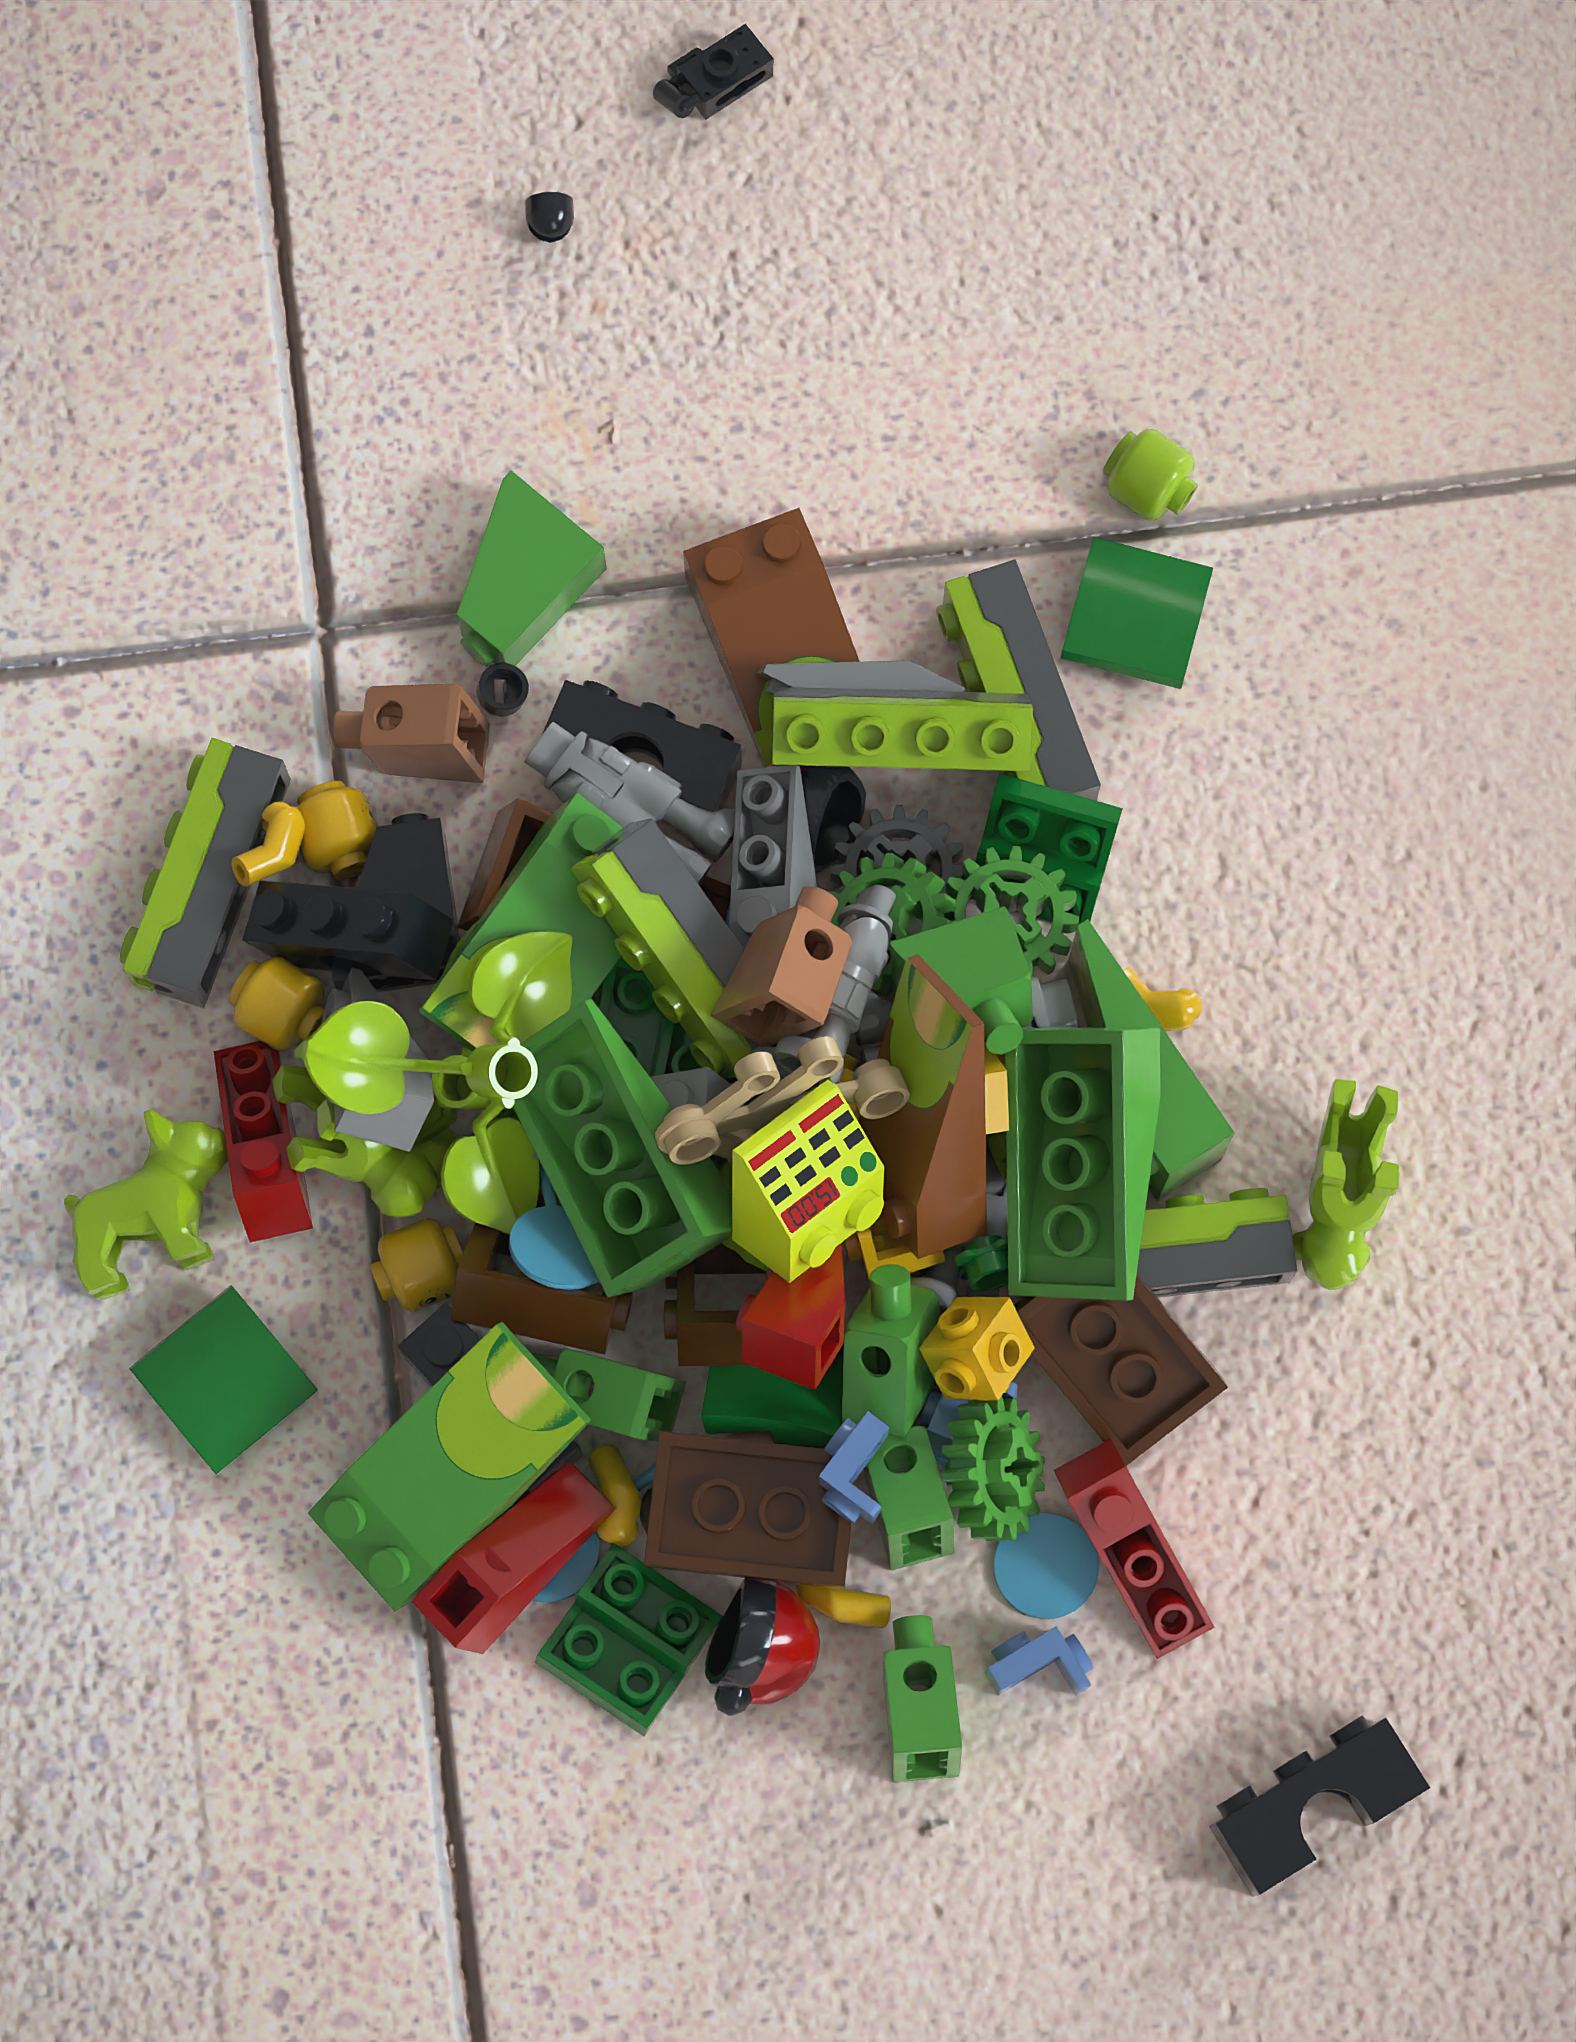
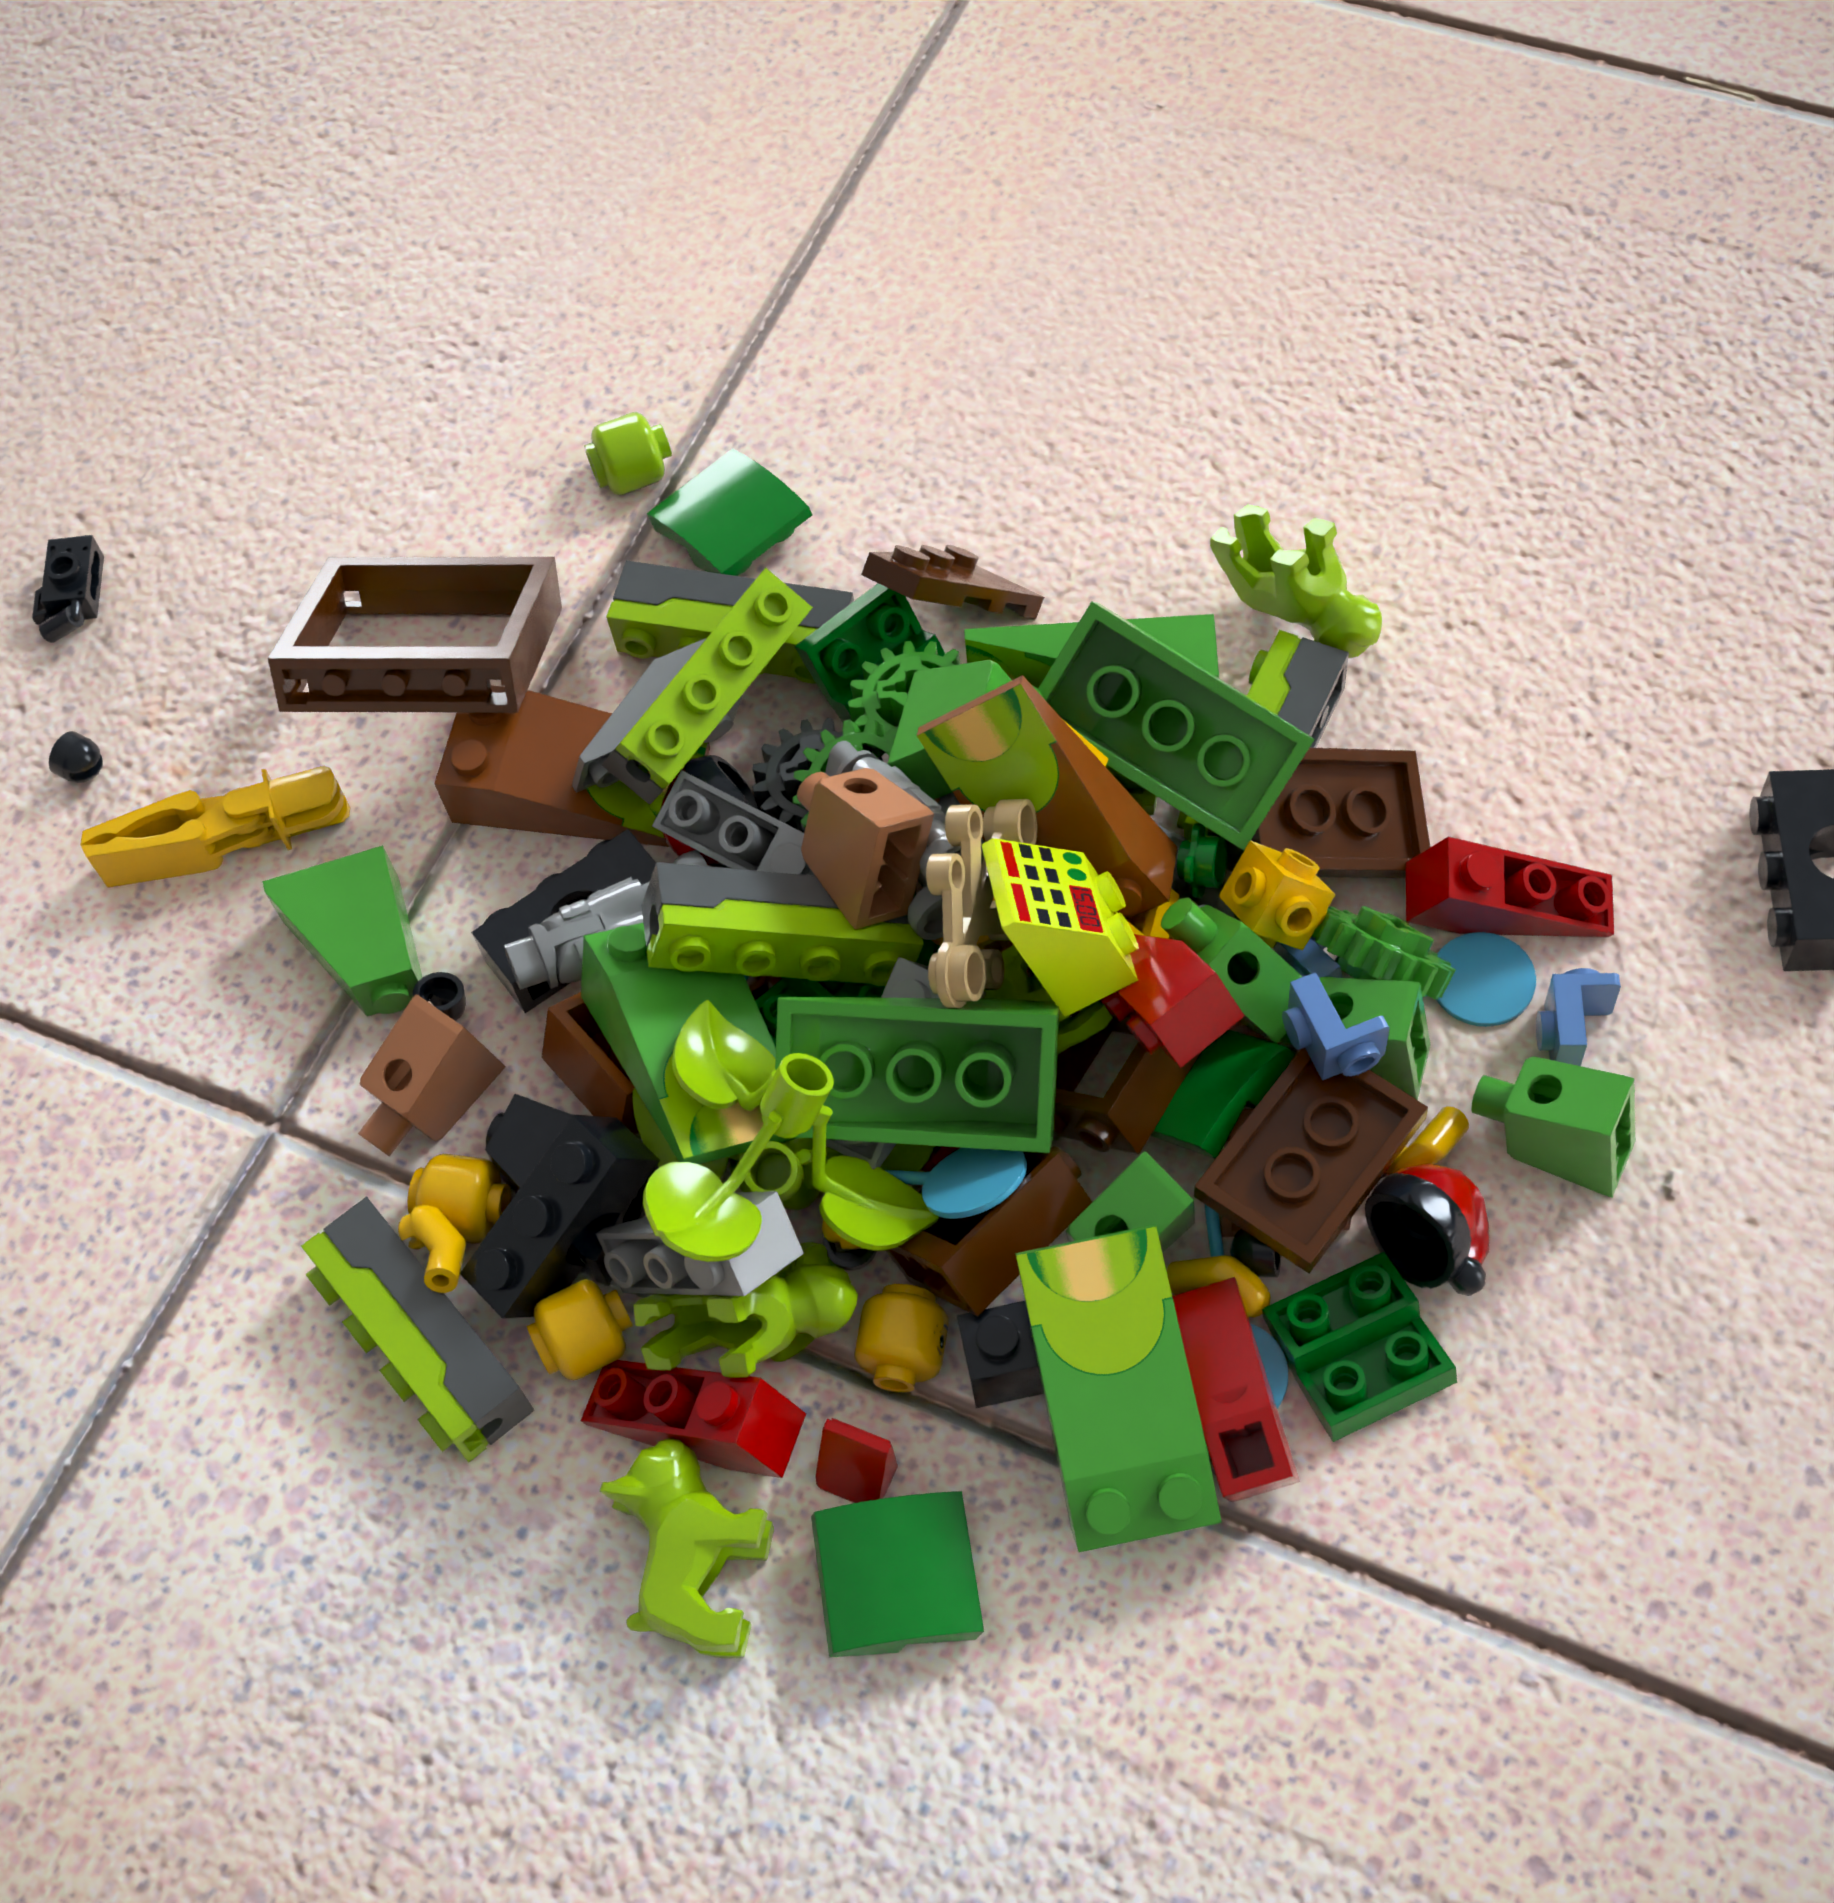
camera: 50 degrees left, 15 degrees down
(295, 1293) = (854, 1463): none -> red slope
(556, 389) = (194, 833): none -> yellow arm
(758, 469) = (417, 676): none -> reddish brown window
(1162, 860) = (948, 579): none -> reddish brown wing

